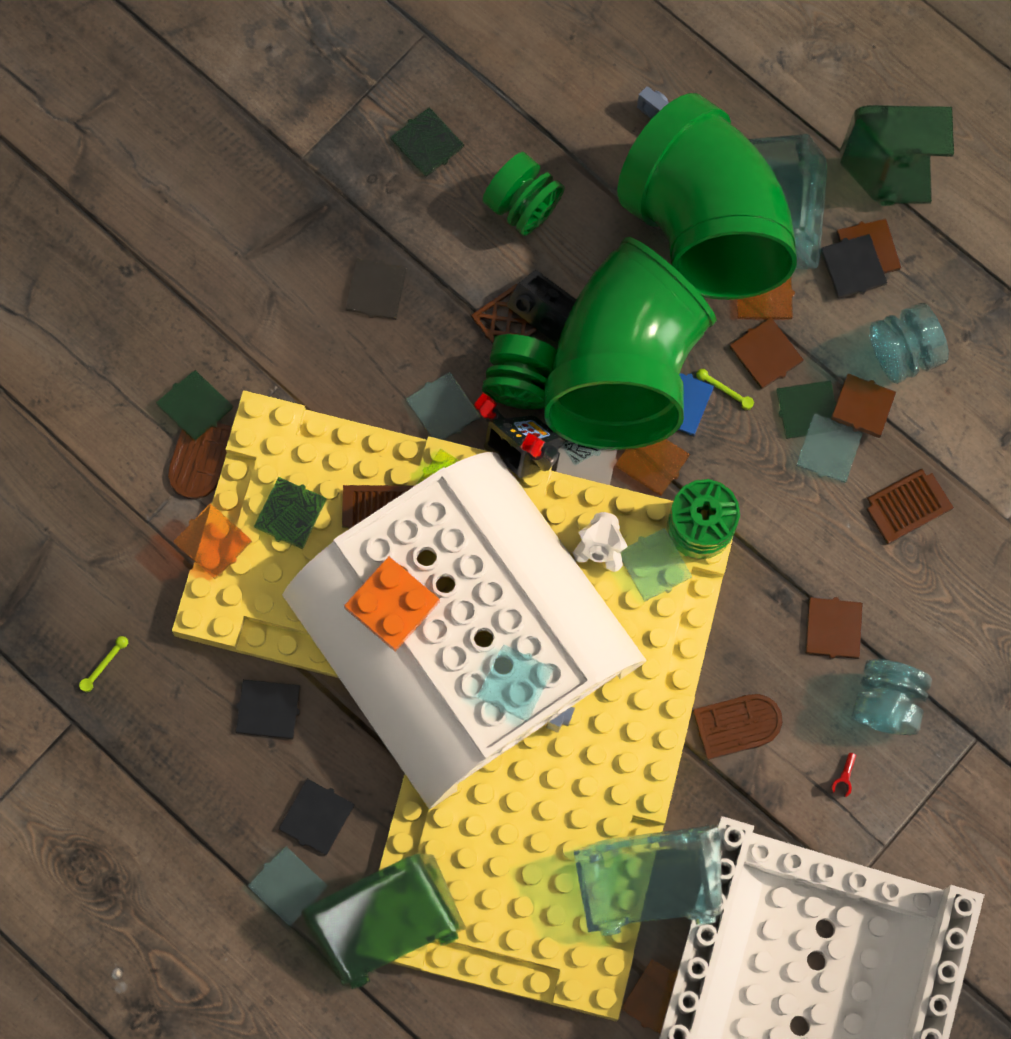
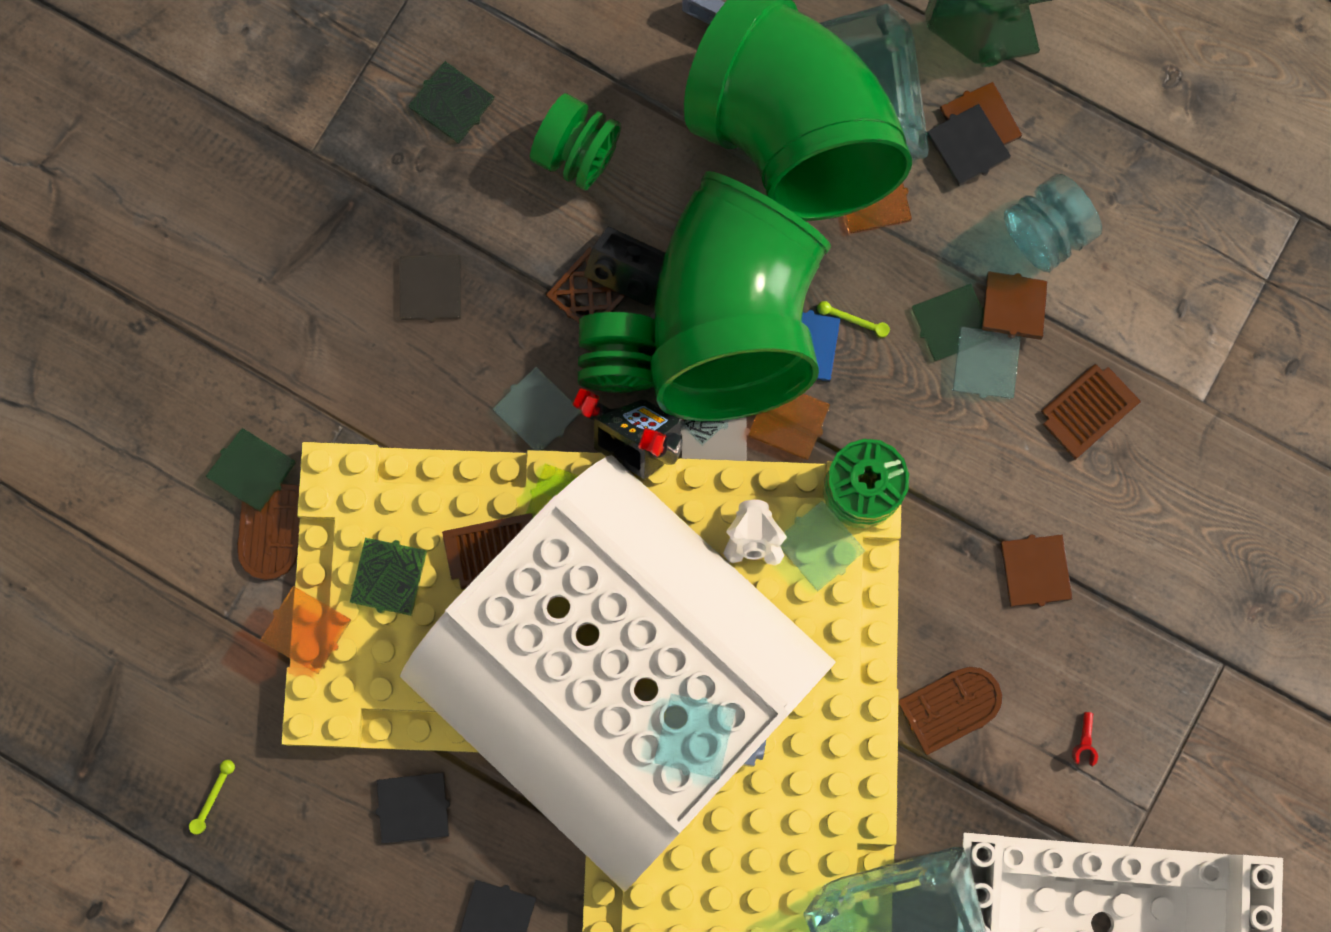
camera: 10 degrees left, 5 degrees up
(392, 603) = (530, 673): orange plate -> none
(766, 353) = (891, 267): reddish brown piece -> none
(891, 697) = (1122, 642): clear light blue wheel -> none

